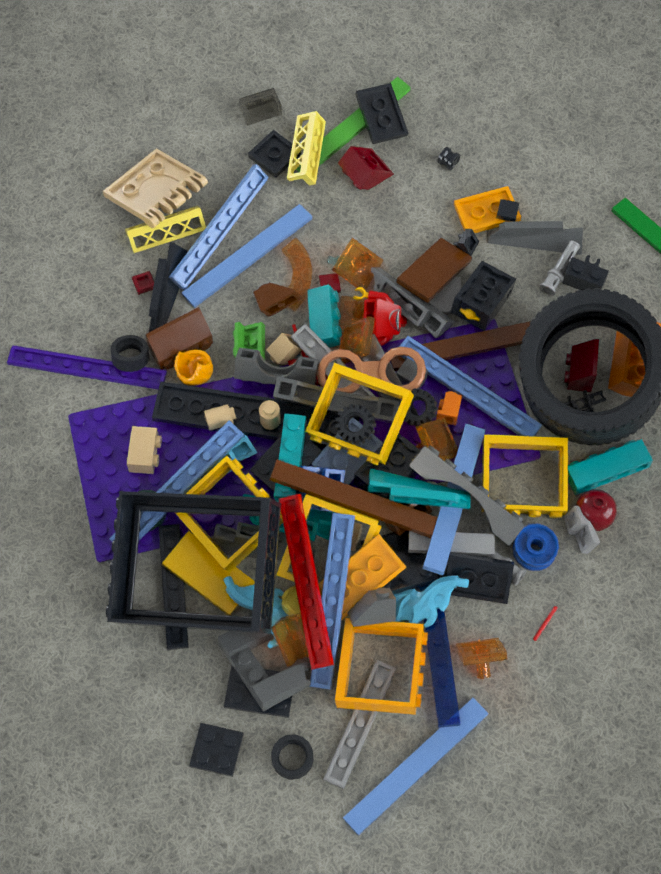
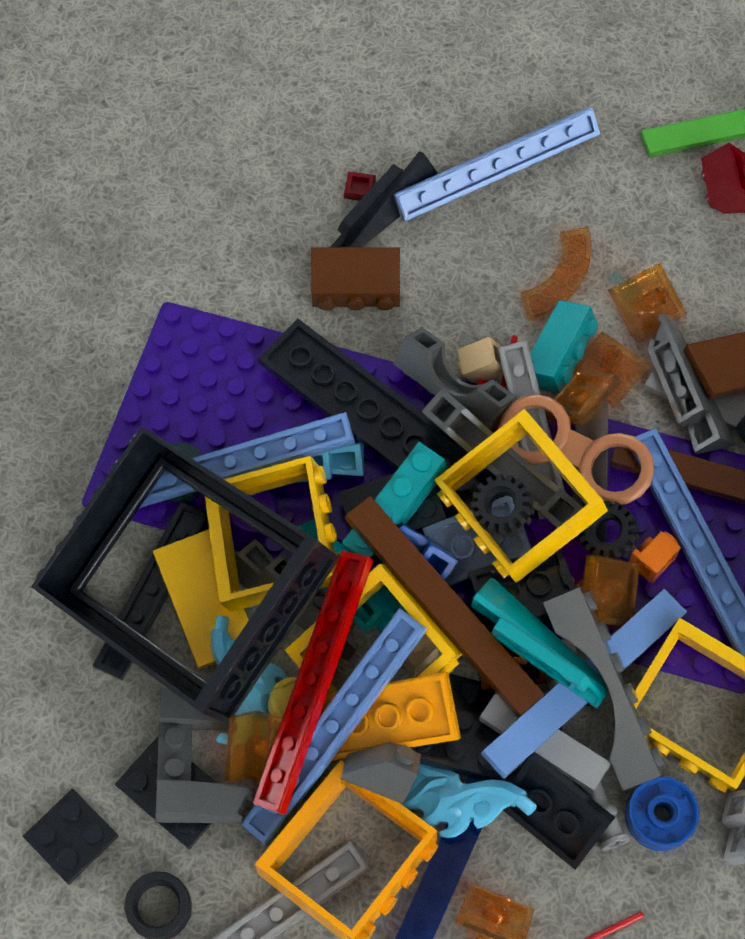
camera: 30 degrees right, 0 degrees up
(83, 367) = (224, 255): dark purple tile -> none
(129, 364) = (284, 279): black tyre -> none
(143, 450) = (222, 394): tan brick -> none
(155, 184) = (444, 70): tan hinge -> none
(169, 220) = (428, 123): light yellow fence -> none
(193, 367) = (351, 323): light orange piece -> none
(219, 416) = (337, 400): tan brick -> none
(246, 255) = (511, 218): medium blue tile -> none
(249, 337) = (448, 323): bright green bracket -> none
(260, 106) = (643, 39): clear smoke panel -> none
(269, 414) = (405, 433): tan brick -> none
(272, 153) = (626, 107): black plate -> none
(275, 298) = (510, 289): reddish brown slope -> none
(311, 145) = (677, 119): light yellow fence -> none
(332, 280) = (600, 305): dark red tile -> none
(385, 312) = (641, 385): red torso -> none
(408, 372) = (624, 476): dark grey panel -> none

